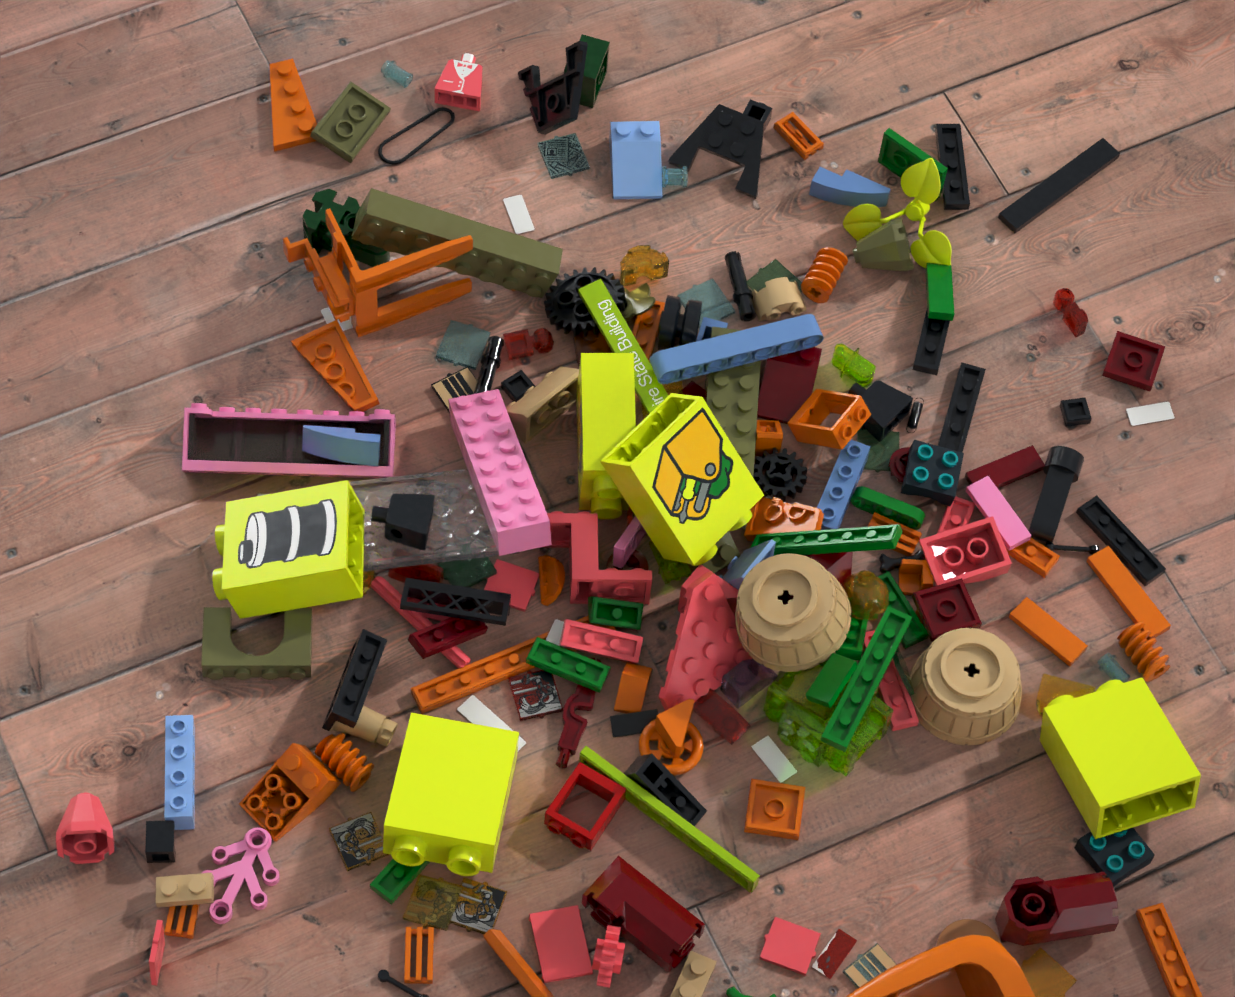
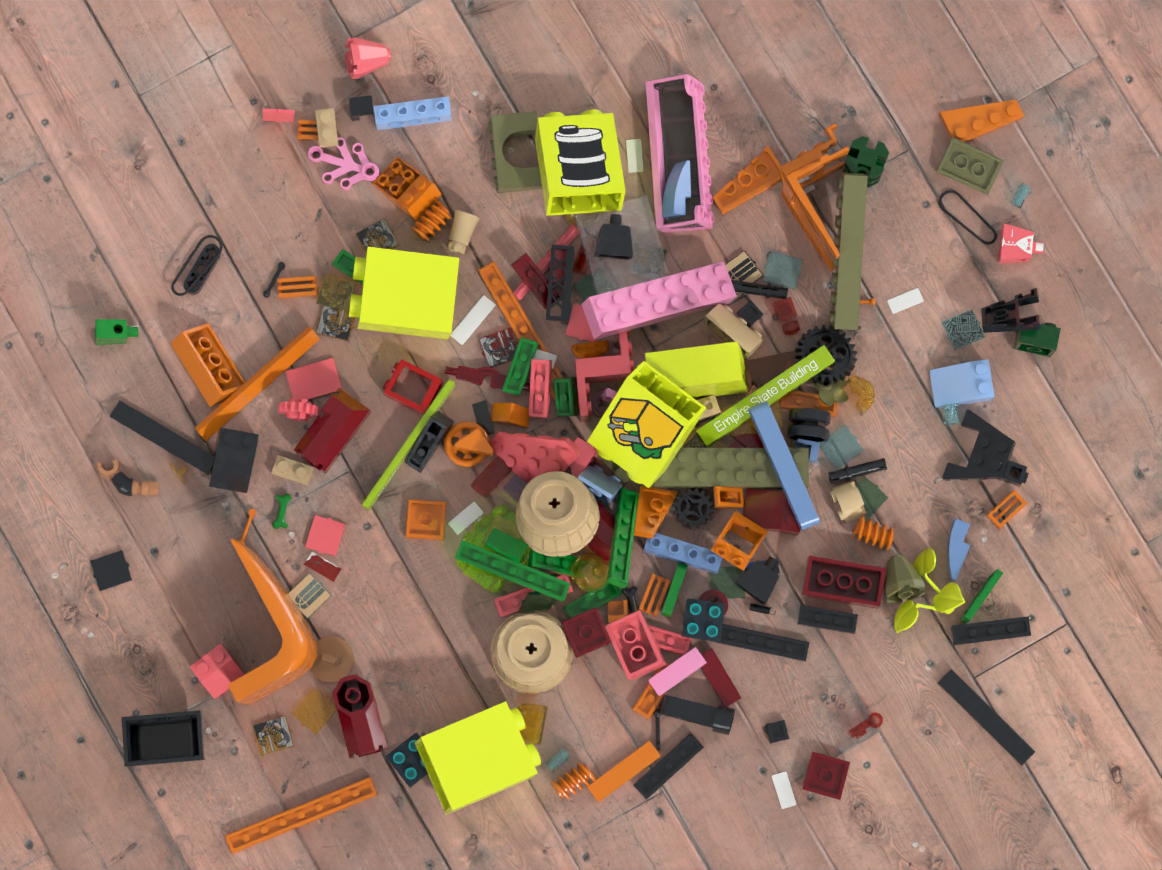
camera: 90 degrees right, 20 degrees up
(355, 680) = (488, 220): black fence -> none
(853, 365) = (794, 560): clear neon green arm -> none
(887, 311) = (843, 582): none -> dark red brick
(939, 291) = (868, 622): green tile -> none
(1048, 631) = (585, 711): orange tile -> none

